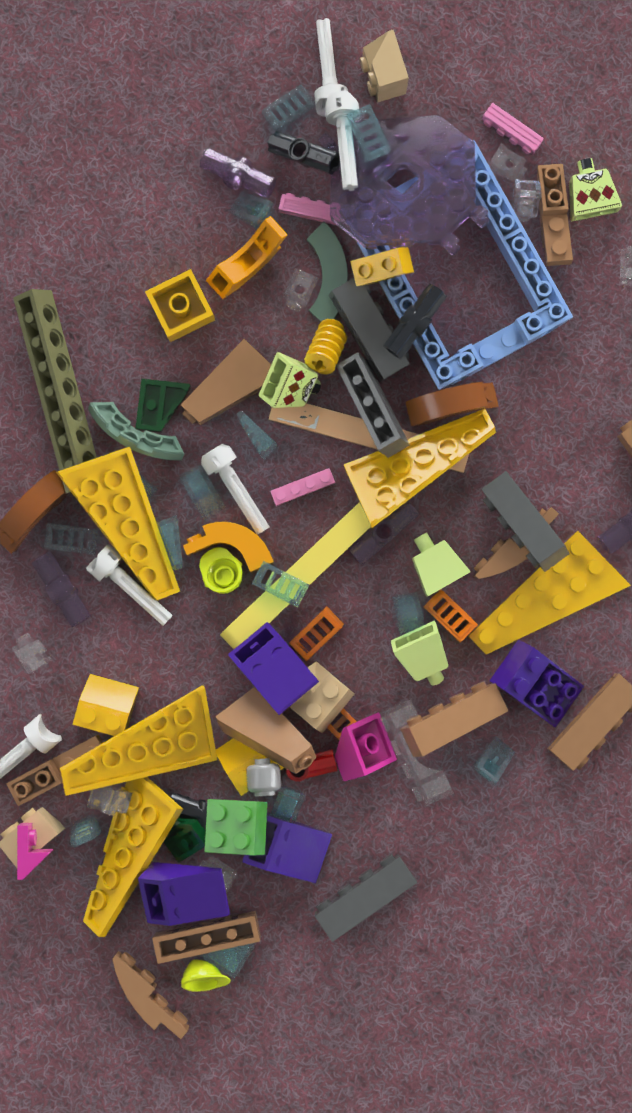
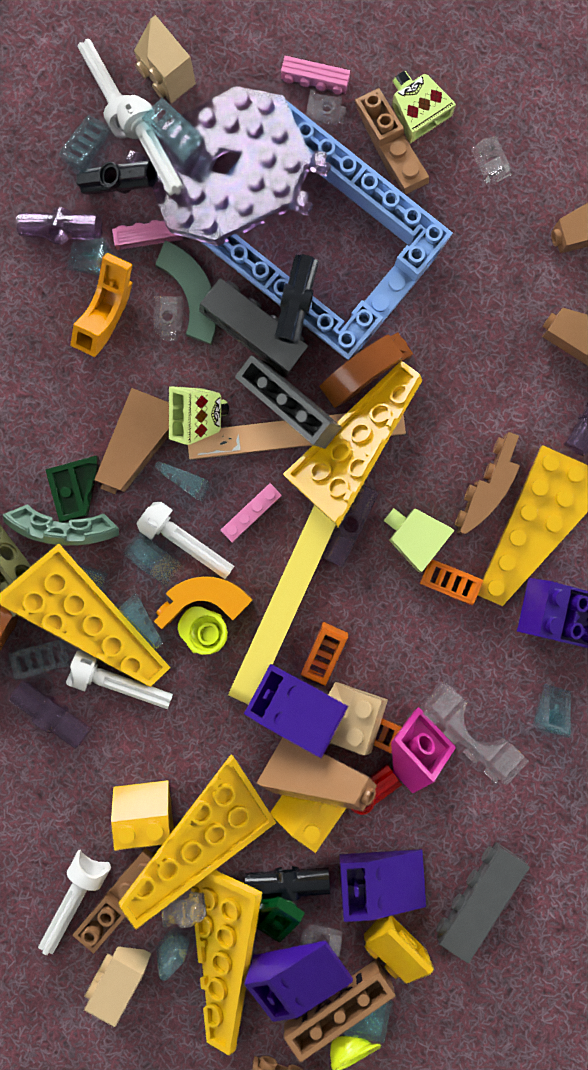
camera: 15 degrees left, 0 degrees up
(28, 857) = (119, 1013): dark pink slope -> none
(31, 653) = (44, 792): clear brick -> none
(180, 305) = (54, 380): yellow brick -> none
(236, 827) = (323, 890): bright green brick -> none
(263, 777) = (331, 828): light grey head -> none
(277, 906) = (398, 949): none -> yellow slope
(287, 803) = (365, 838): clear light blue slope -> none
(299, 594) = (292, 620): clear light blue slope -> none
(326, 346) = (217, 362): yellow piece -> none
(382, 266) = (240, 256): yellow brick -> none
(408, 612) = (411, 601): clear light blue slope -> none
(422, 653) = (439, 631): yellowish green torso -> none
(453, 719) = (499, 686): medium nougat brick -> none
(525, 521) = (490, 457): dark grey brick -> none
(526, 199) = (355, 129): clear brick -> none

